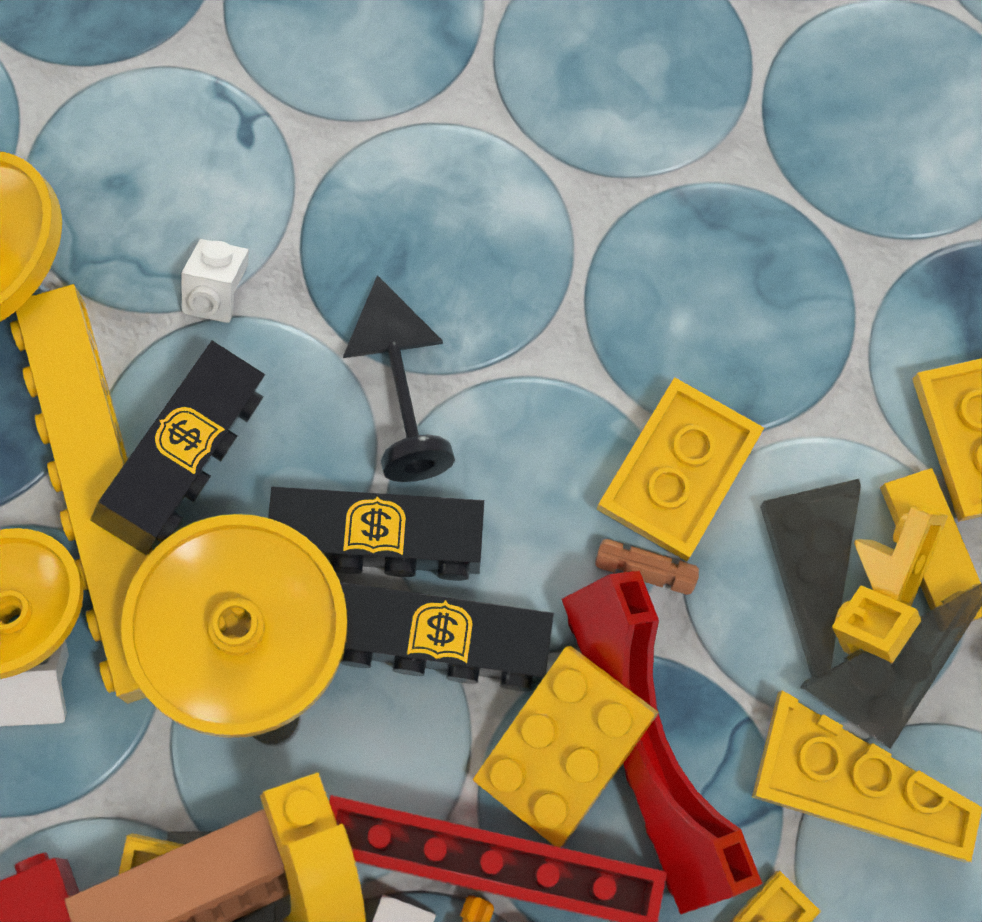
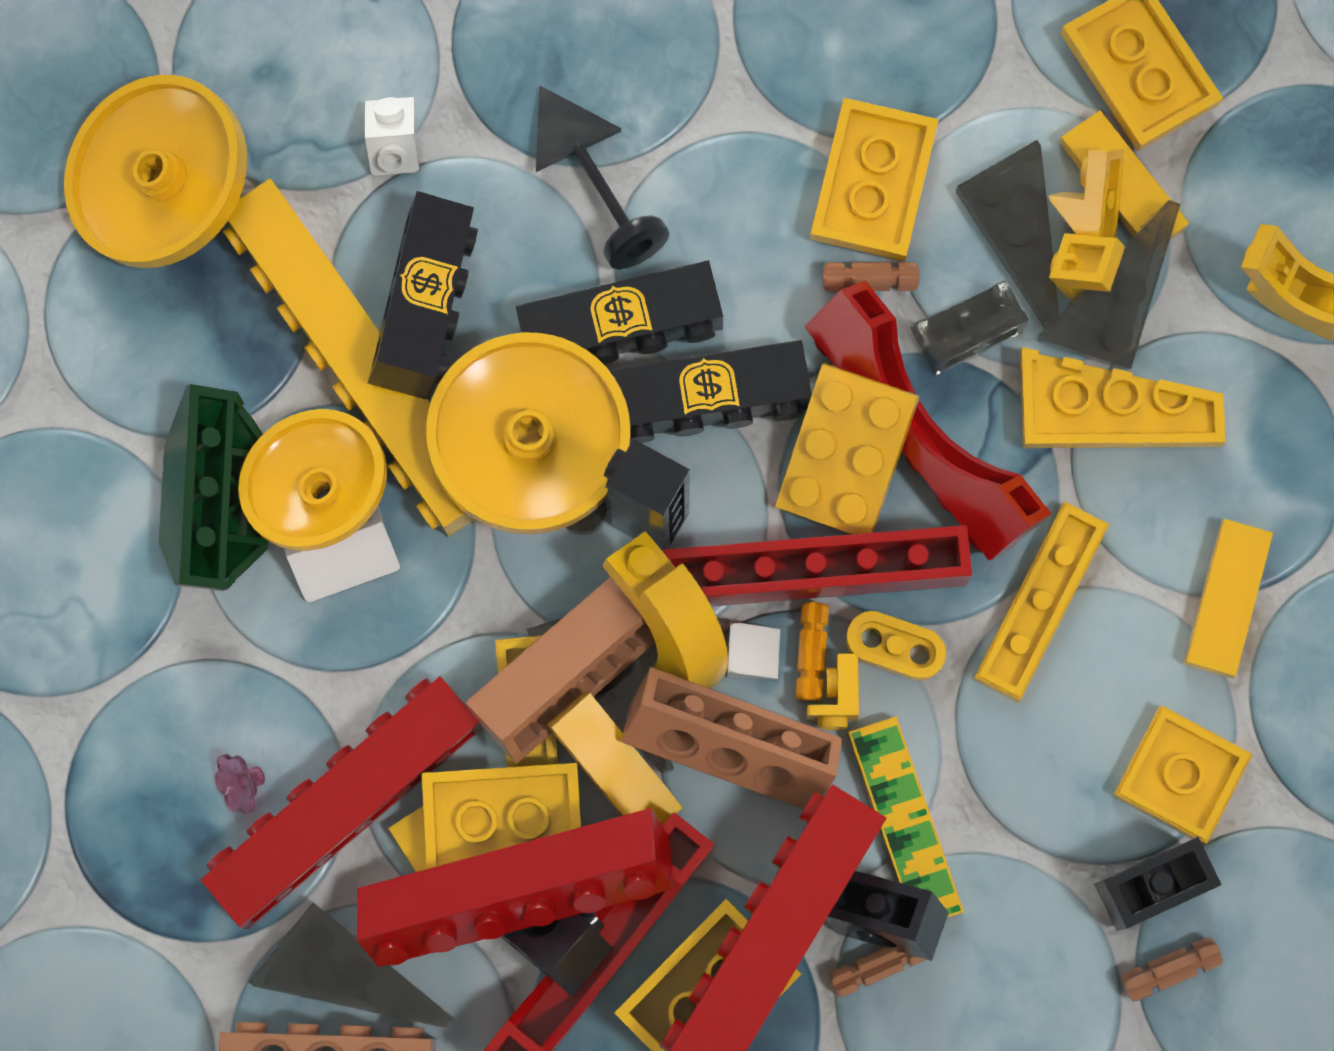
camera: 10 degrees left, 5 degrees up
(330, 733) = (647, 493): none -> black brick
(734, 651) = (970, 327): none -> clear smoke hinge

